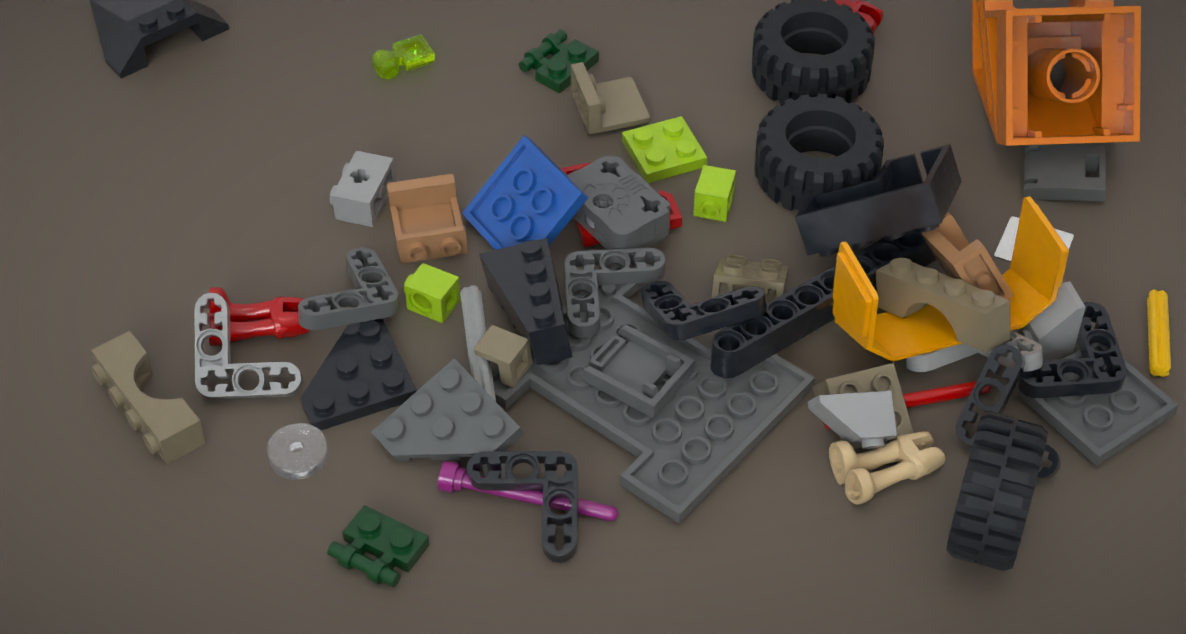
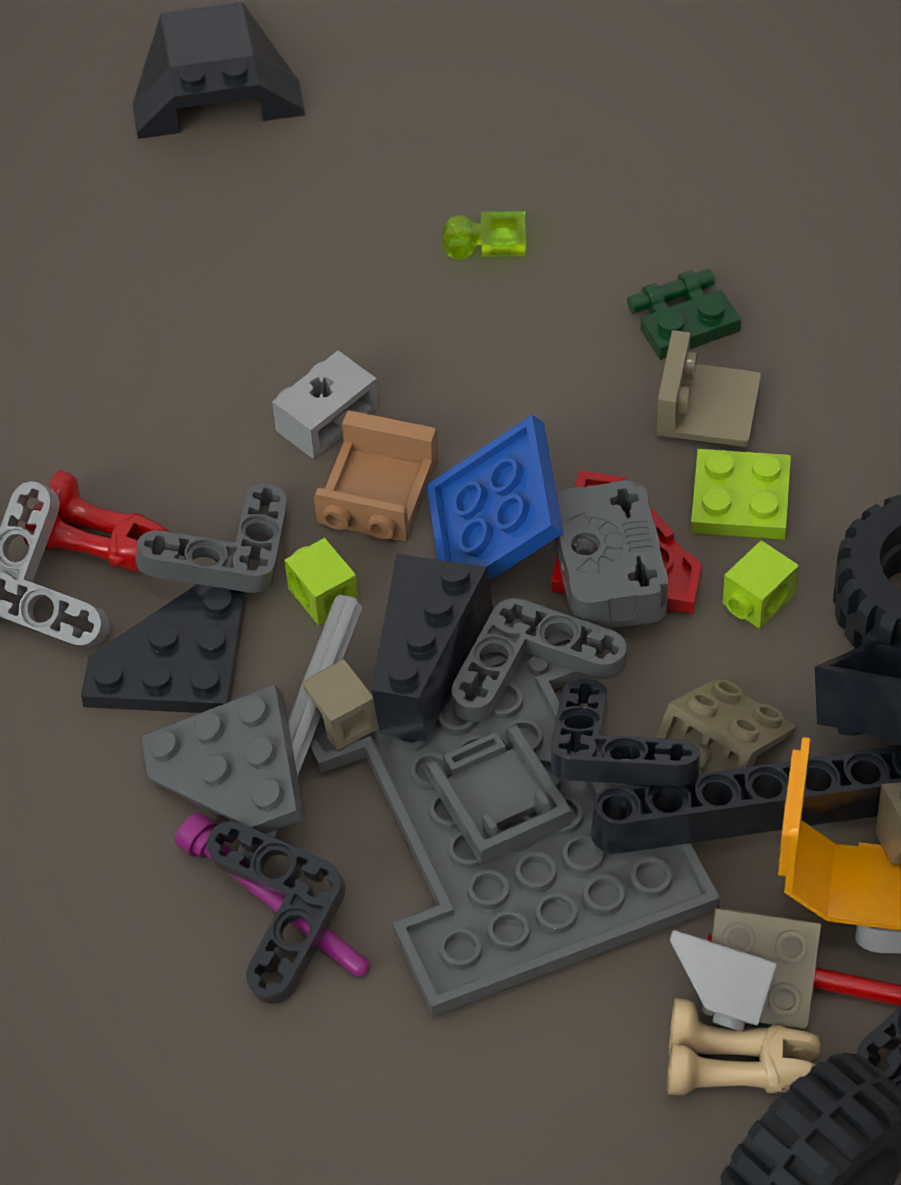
camera: 30 degrees right, 5 degrees up
(300, 464) = (53, 741): clear piece -> none
(384, 538) = (79, 880): dark green plate -> none

